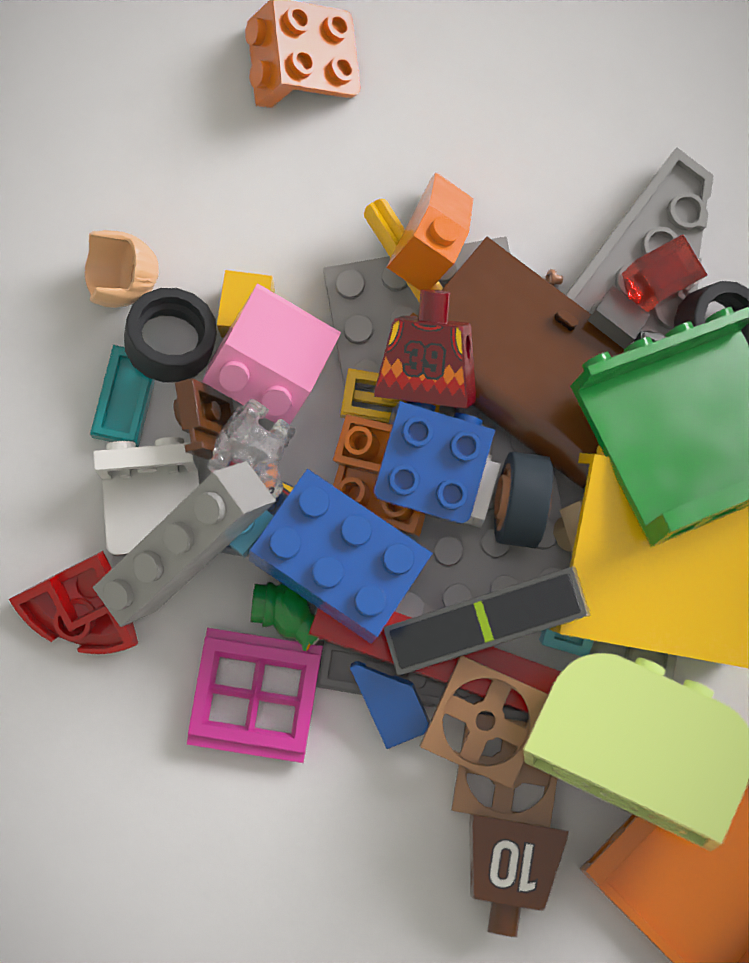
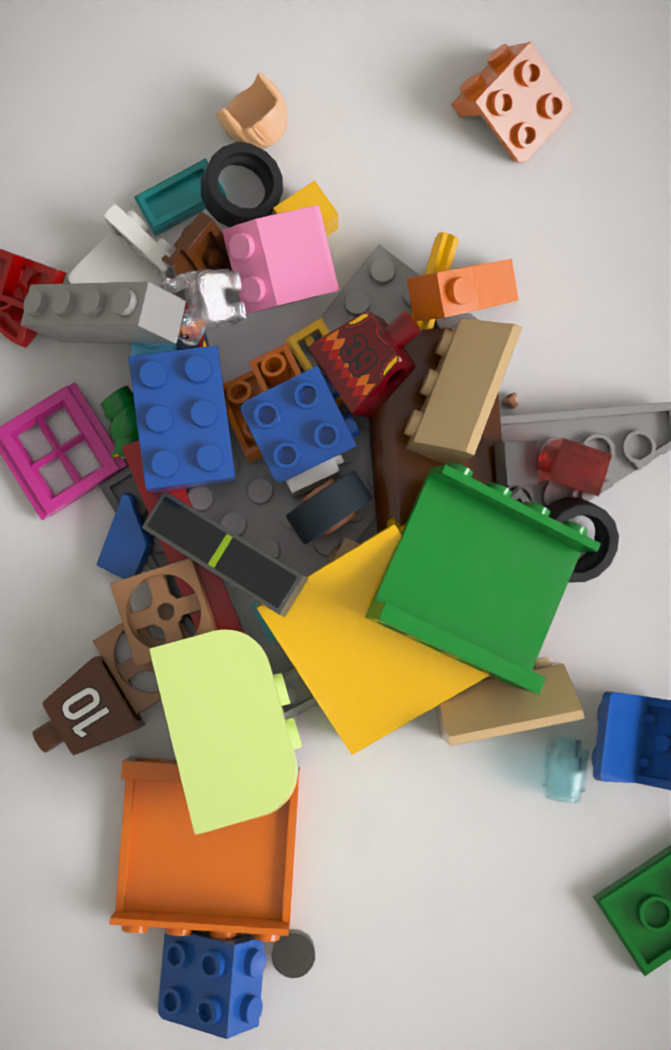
camera: 50 degrees right, 5 degrees up
(528, 303) = (461, 389): none -> tan slope

